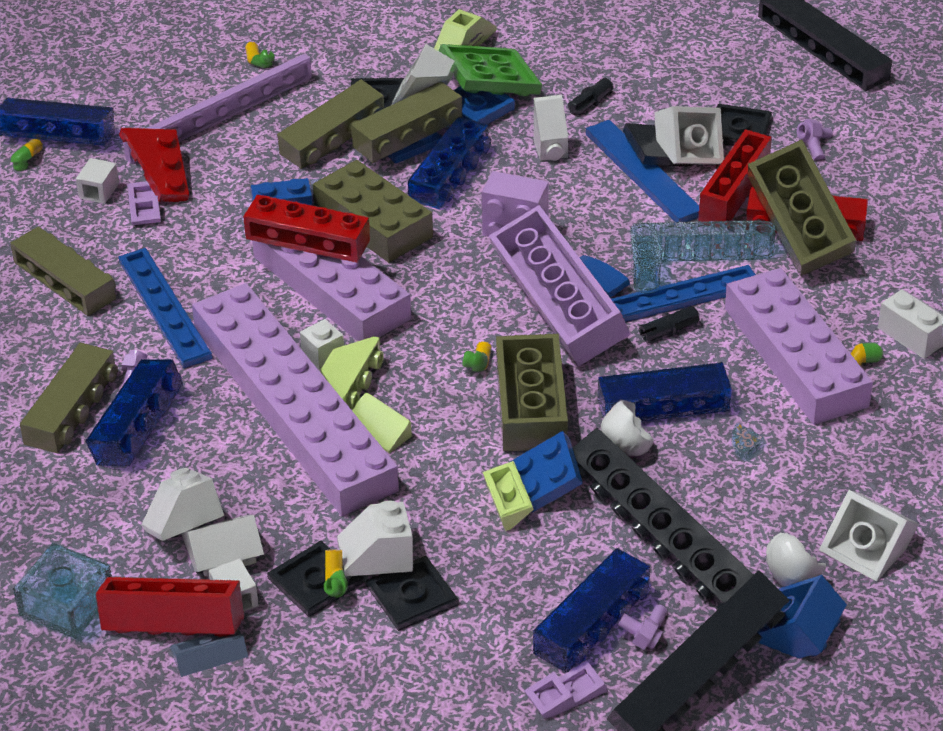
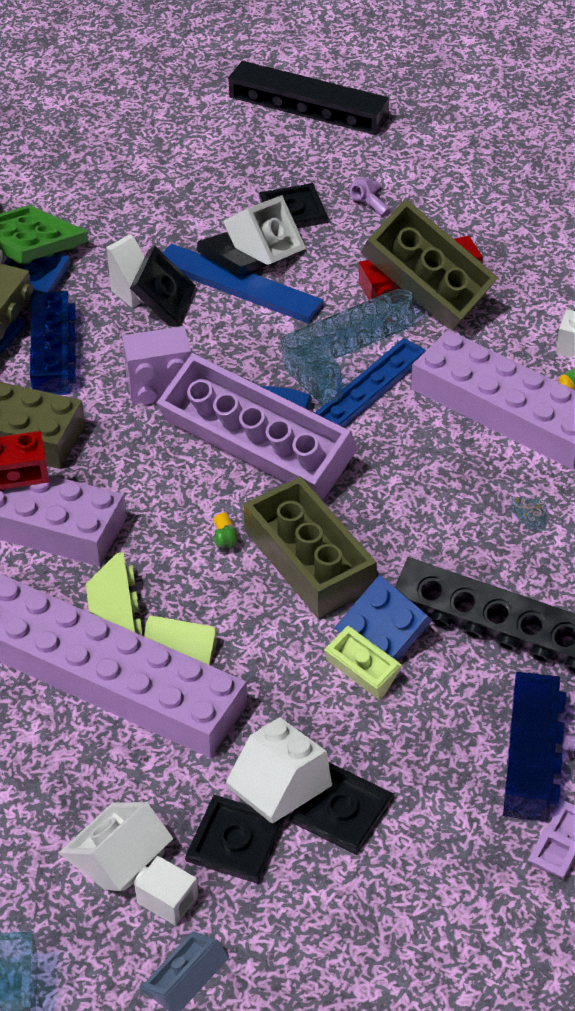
camera: 30 degrees left, 5 degrees up
(170, 605) = (121, 944): red brick -> none
(182, 504) = (53, 825): white slope -> none
(319, 342) = (66, 581): white brick -> none
(335, 579) = (264, 829): arm -> none
(569, 150) = (163, 287): none -> black tile
(590, 96) = (138, 222): black axle -> none
(626, 429) = (426, 545): white hair -> none
(665, 386) = (430, 496): clear blue brick -> none
(669, 324) = (378, 424): black axle -> none
(730, 182) = (336, 259): red brick -> none

